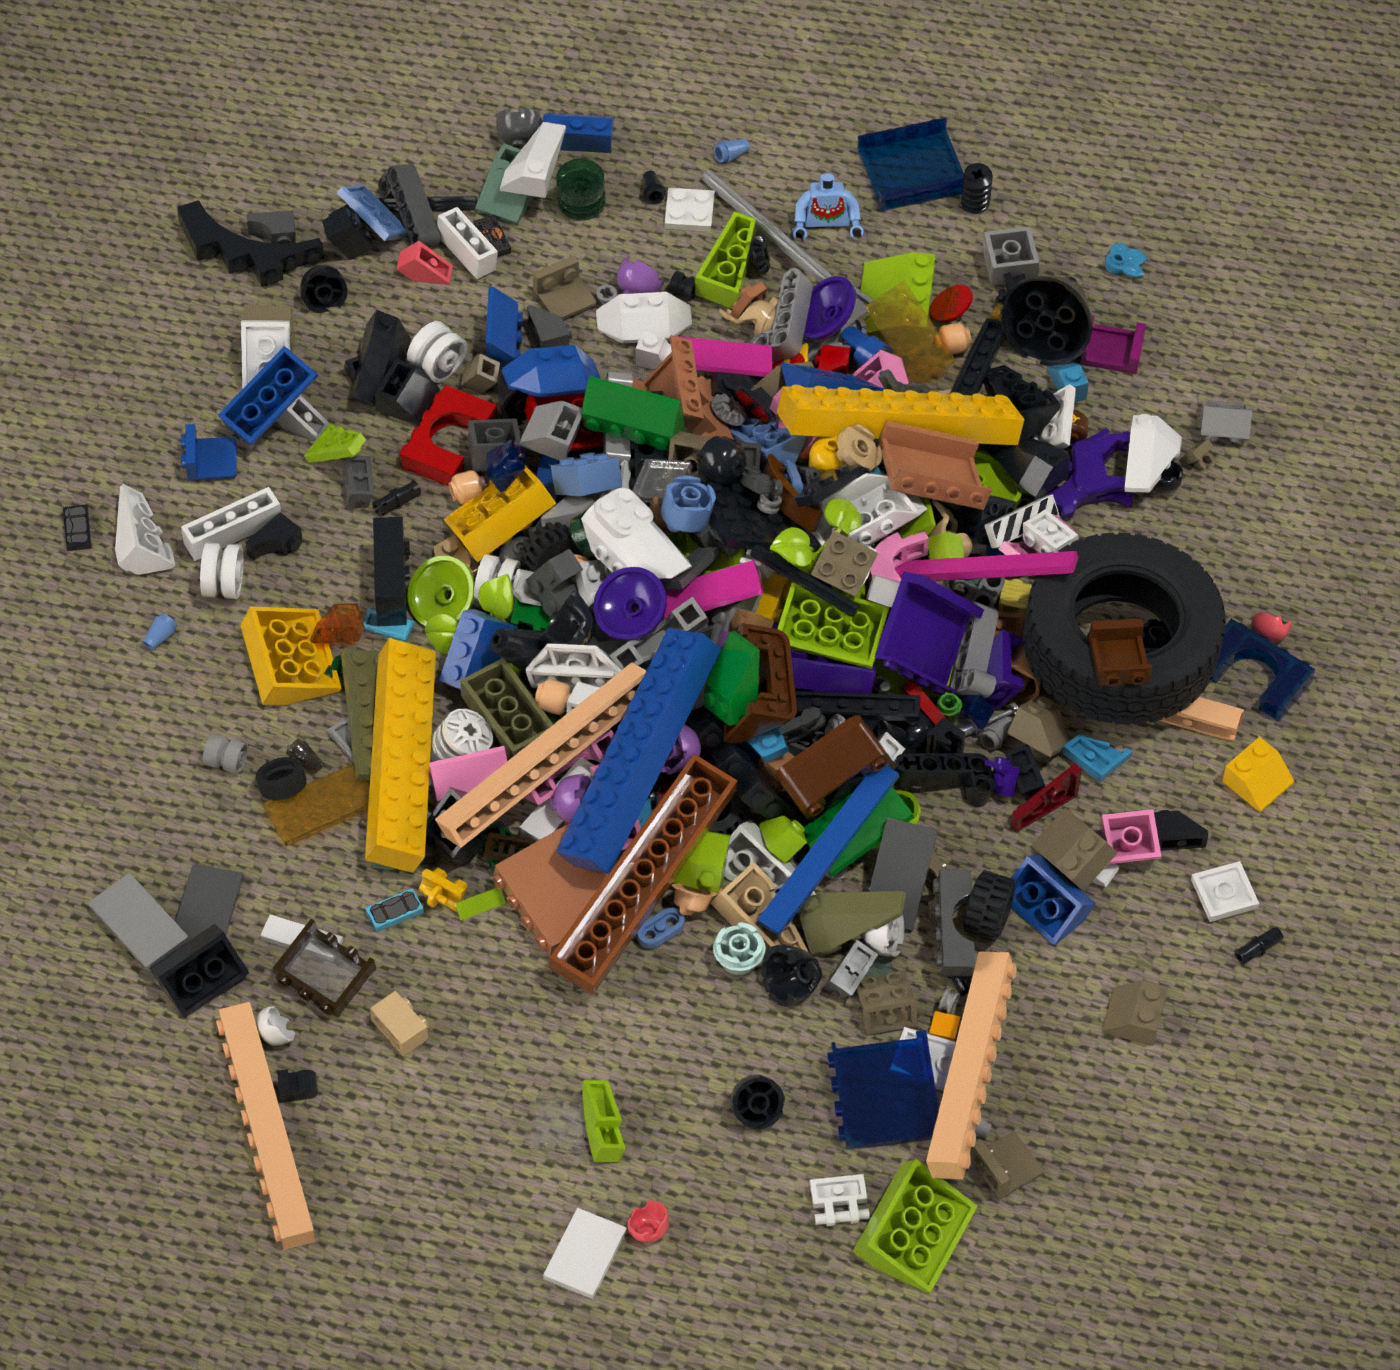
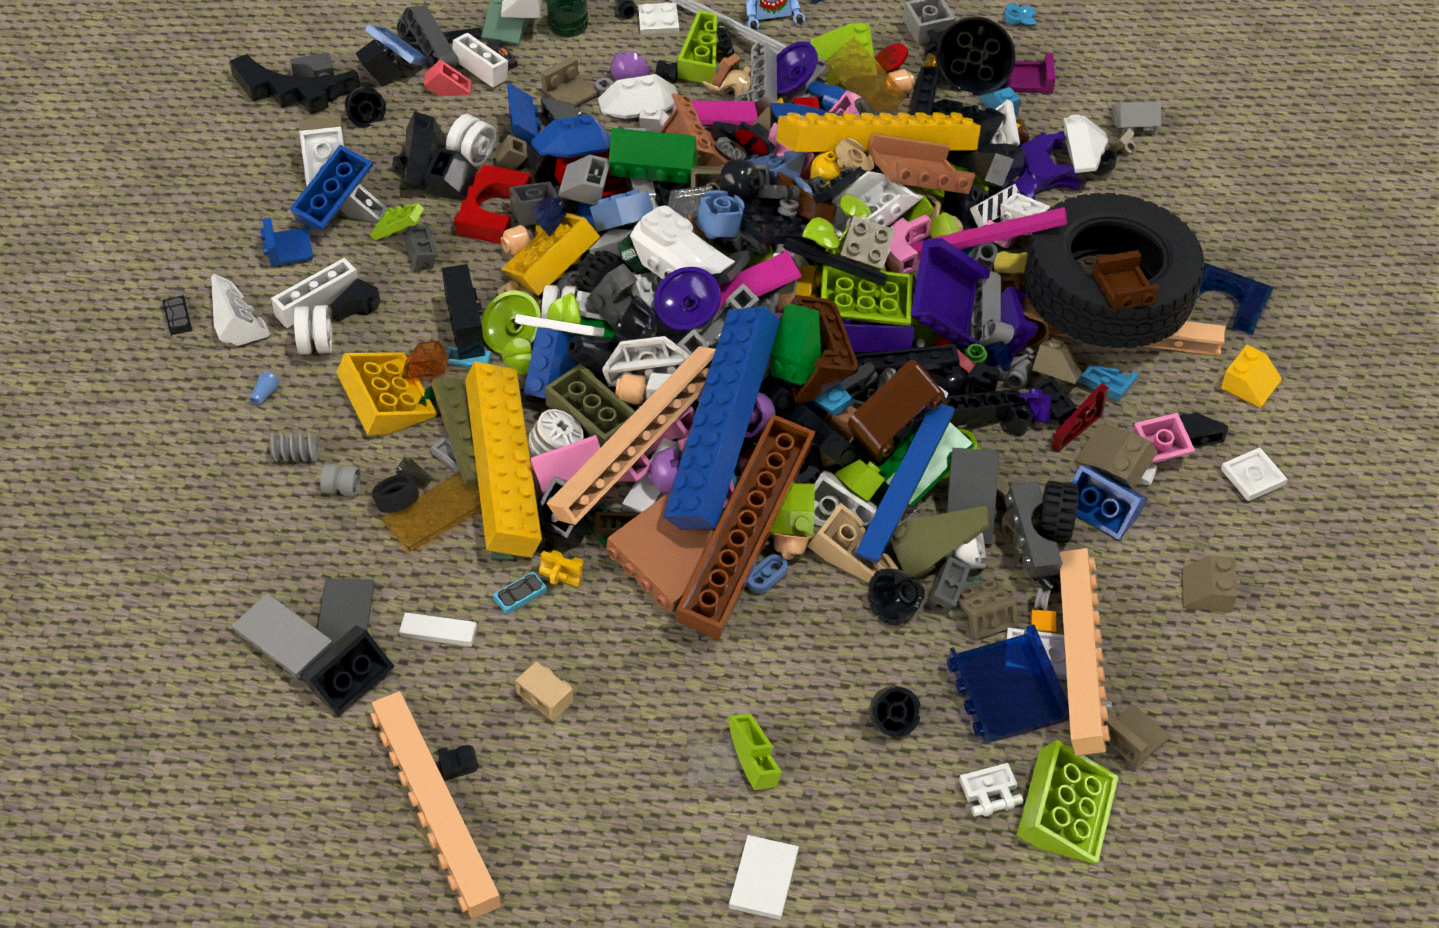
camera: 10 degrees left, 5 degrees down
(182, 708) = (295, 447): none -> light grey piece
(273, 1027) = (425, 711): white hair -> none
(323, 969) = (464, 653): window -> none
(396, 497) = (457, 256): black pin -> none
(480, 903) = (598, 575): lime sticker -> none
(488, 610) = (558, 325): none -> white tile
(649, 1223) = (819, 838): coral hair -> none
(739, 948) = (844, 580): light aqua cone -> none
(882, 590) = (906, 261): light grey slope -> none
(1258, 945) = (1296, 514): black axle -> none
(1270, 627) = (1225, 259): coral hair -> none

